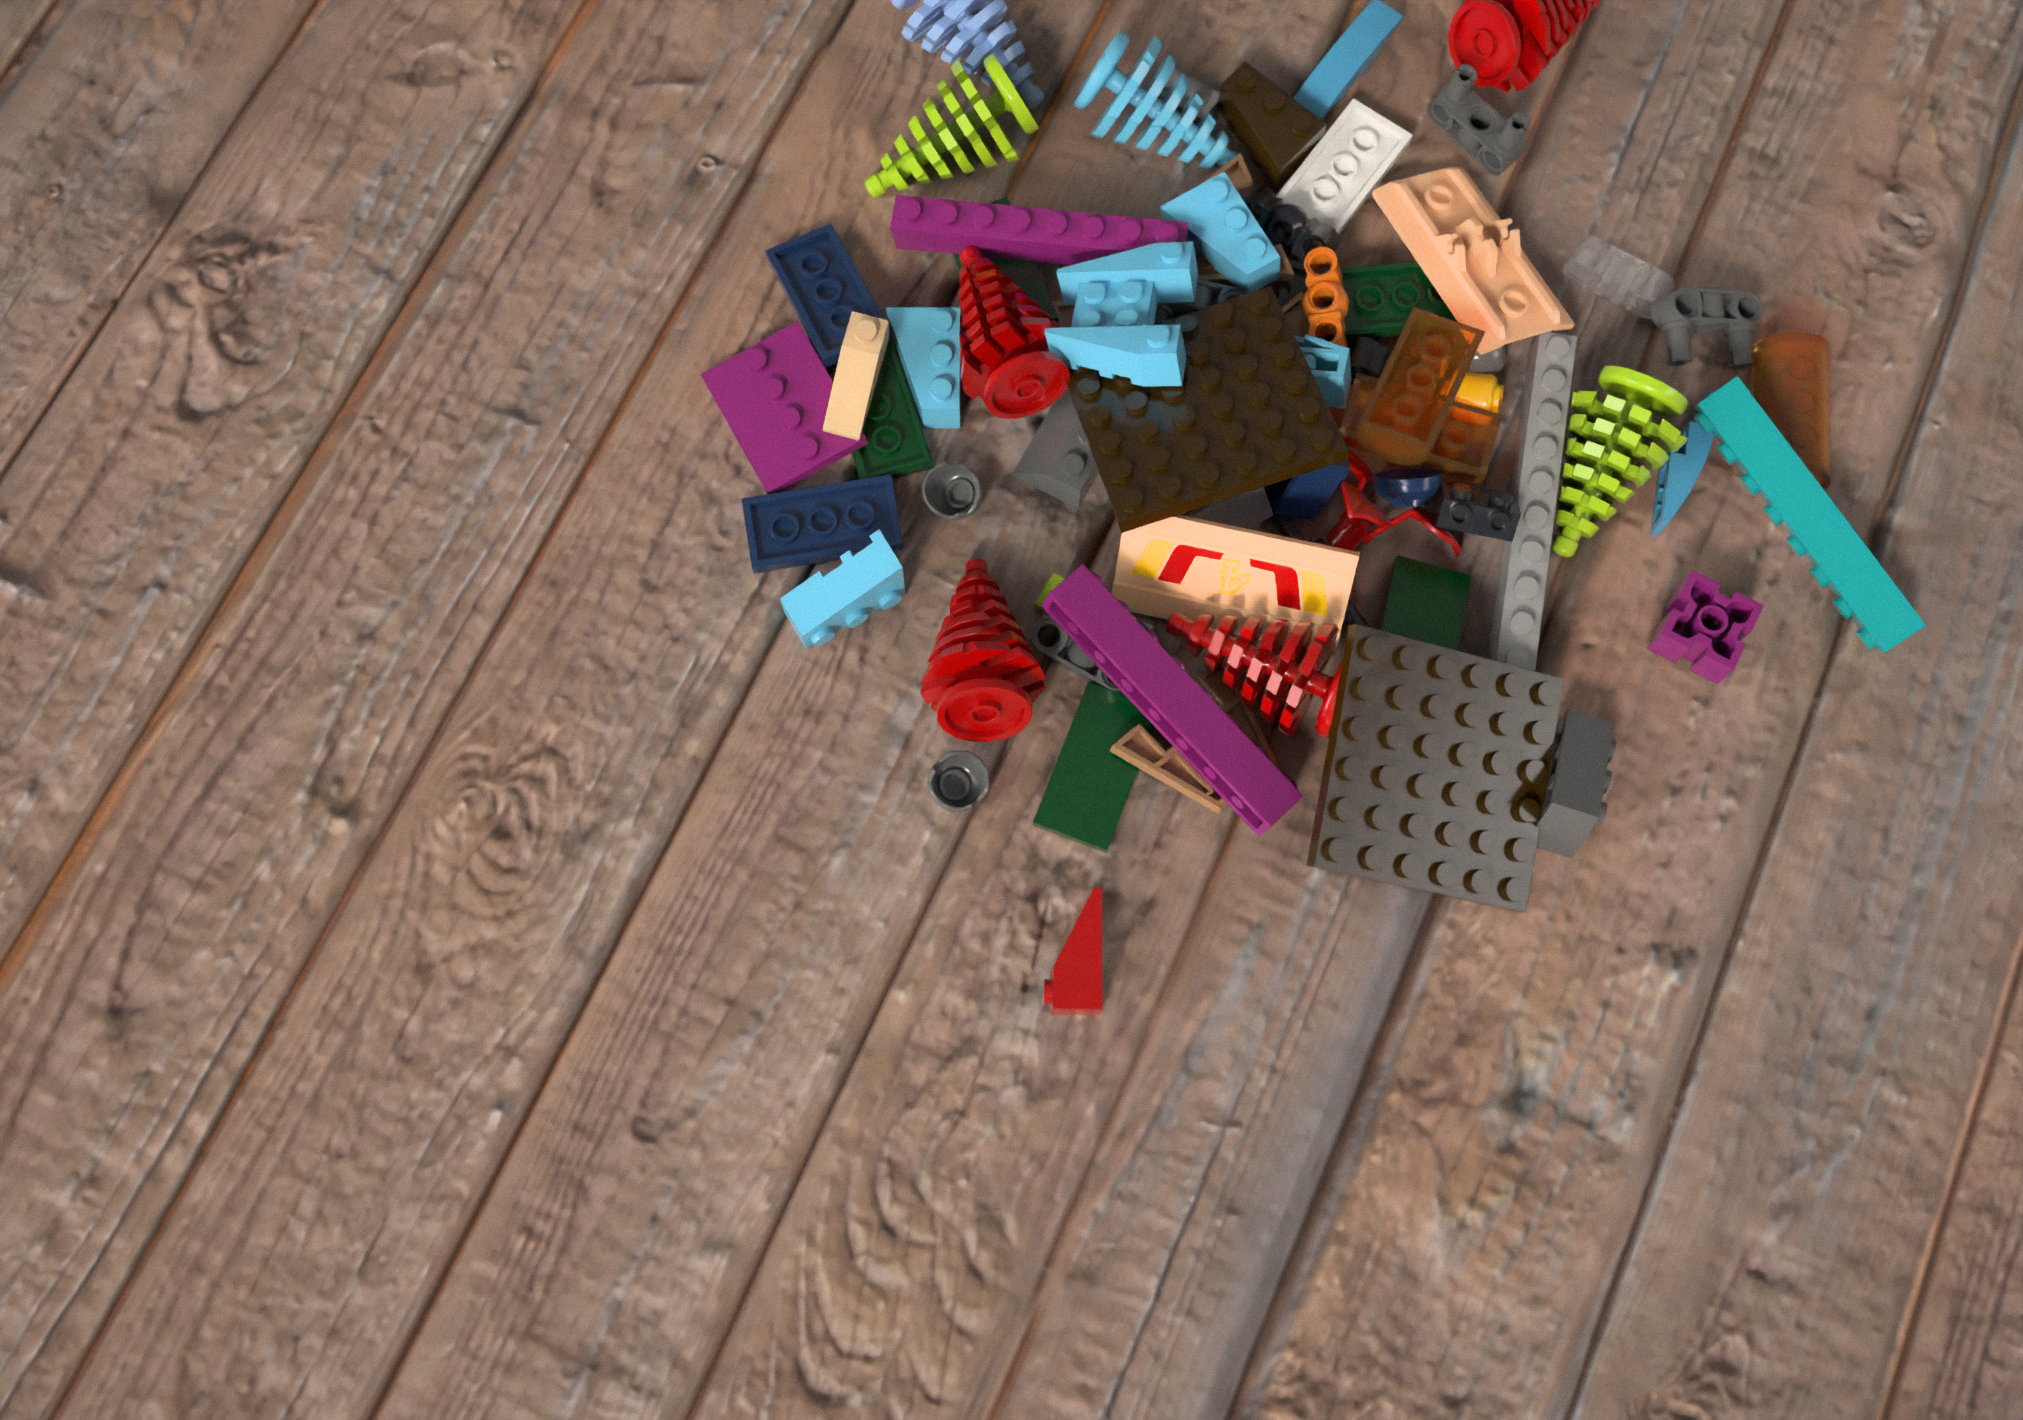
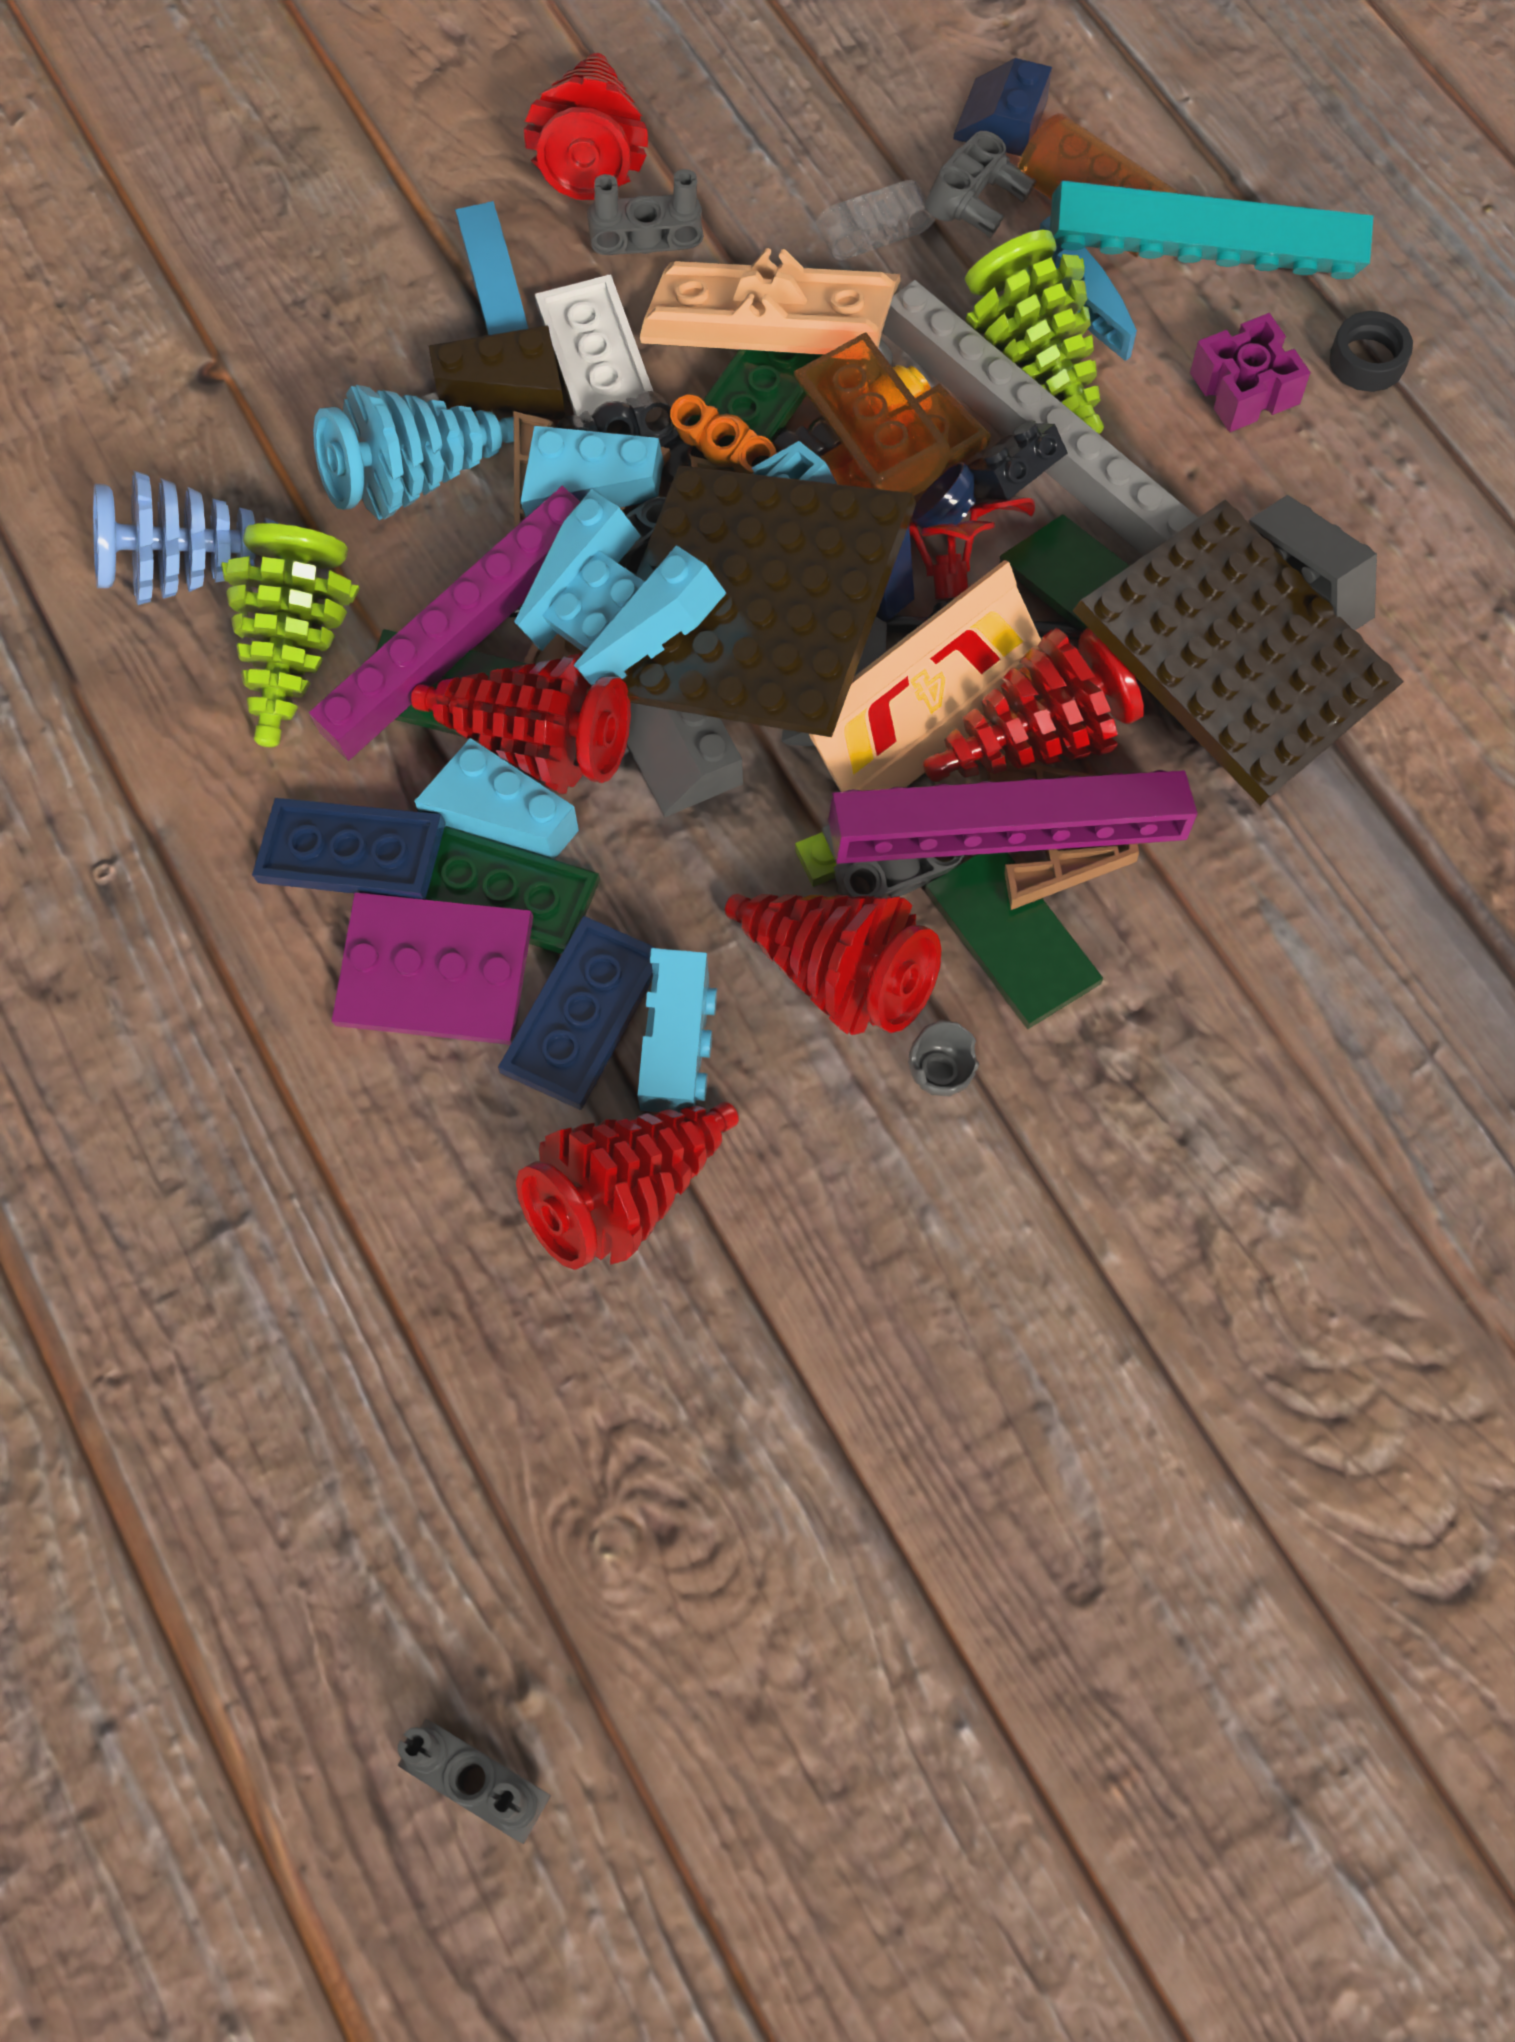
camera: 50 degrees left, 5 degrees down
(258, 794) = (444, 1759): none -> dark grey piece
(725, 633) = (615, 1180): none -> red plant
(856, 375) = (466, 869): tan slope -> none
(952, 490) = (647, 871): dark grey hair -> none
(1078, 970) = (1200, 1074): red slope -> none
(1804, 298) = (1007, 104): none -> dark blue slope
(1824, 683) = (1380, 328): none -> black tyre

